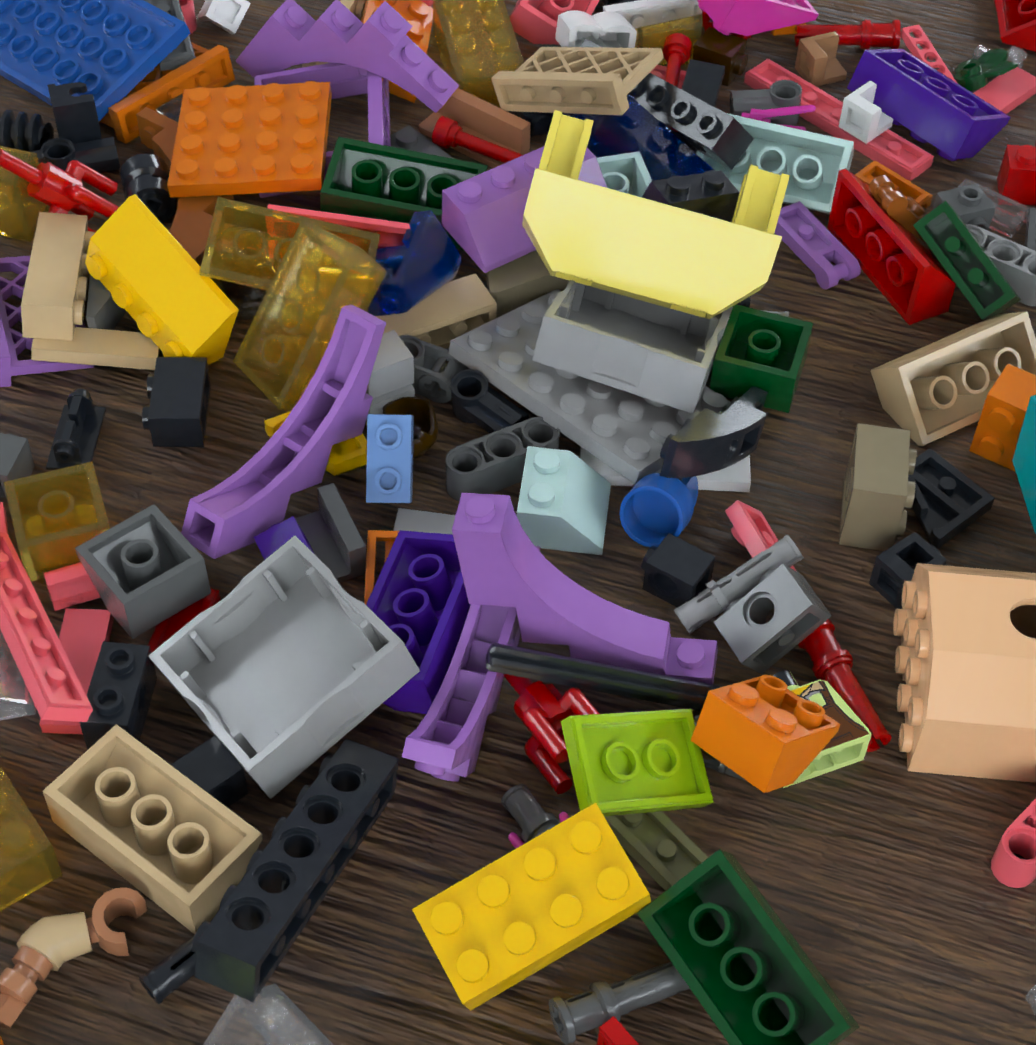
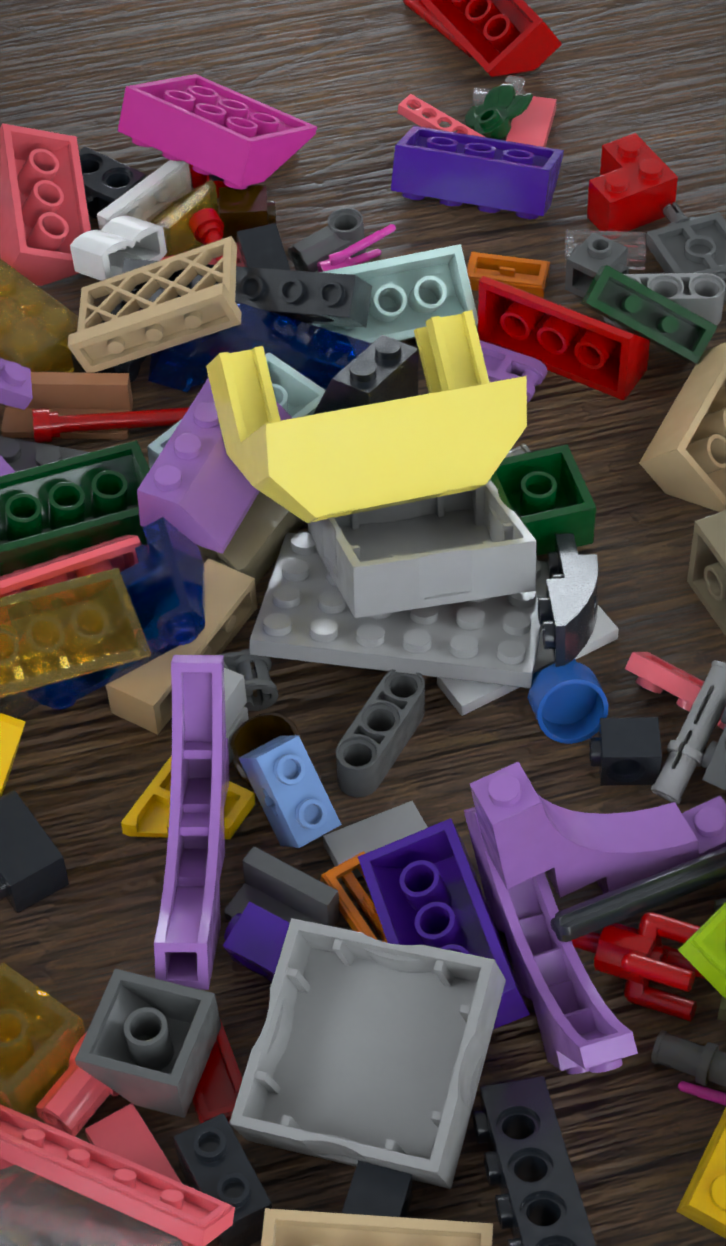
camera: 30 degrees left, 0 degrees up
(302, 310) = (105, 692): clear yellow slope -> none
(487, 407) = (327, 691): black piece -> none
(563, 502) = (463, 741): light aqua slope -> none
(818, 61) = (339, 177): medium nougat panel -> none
(861, 116) = (433, 213): white panel -> none
(862, 35) = (361, 127): red pin -> none
(886, 148) = (412, 225): coral tile -> none
(902, 209) = (554, 289): dark orange plate -> none

